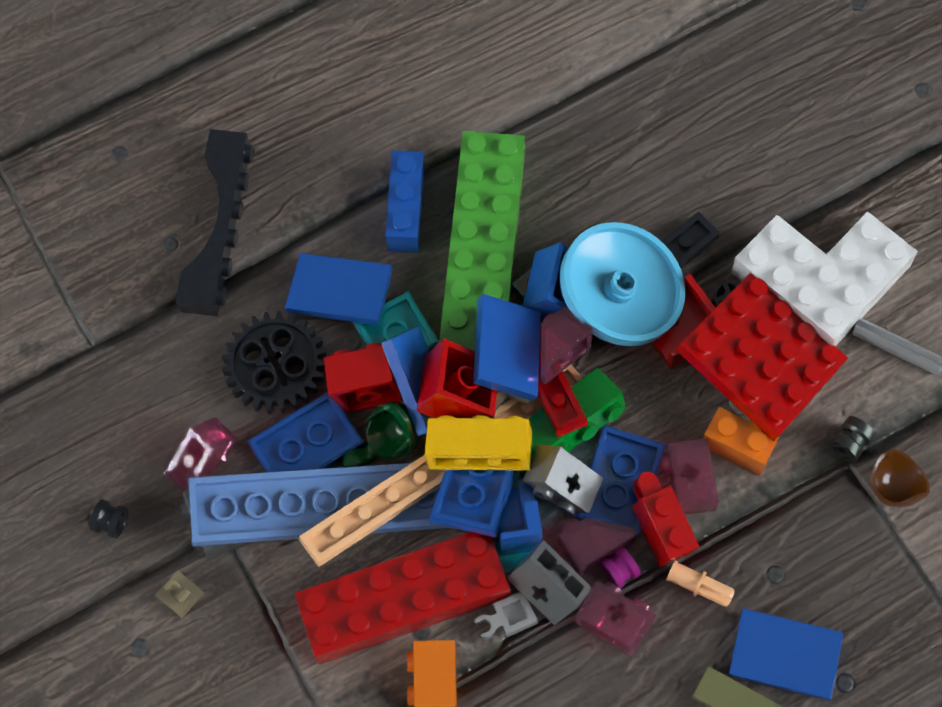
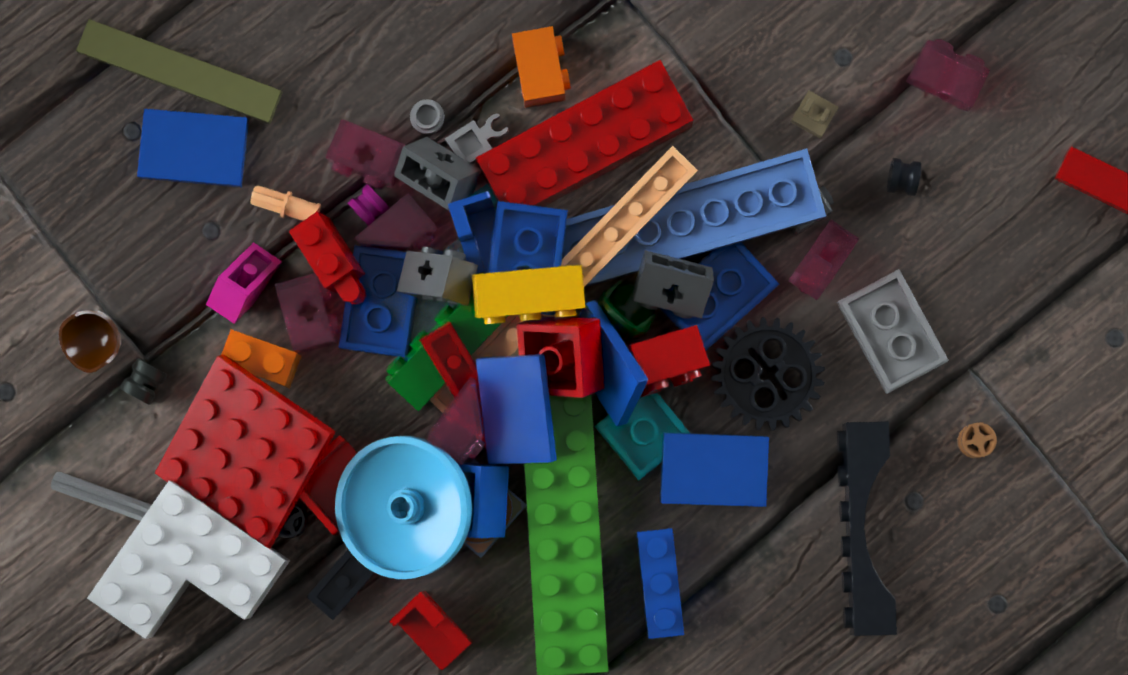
camera: 170 degrees right, 15 degrees up
(43, 608) = (948, 74): none -> clear pink brick
(95, 277) = (983, 438): none -> medium nougat wheel
(153, 387) = (892, 331): none -> light grey tile
(343, 443) = (658, 274): none -> dark grey brick
(551, 648) = (427, 116): none -> light grey plate
(611, 195) = (432, 629): none -> red panel
(748, 514) = (242, 282): none -> dark pink slope

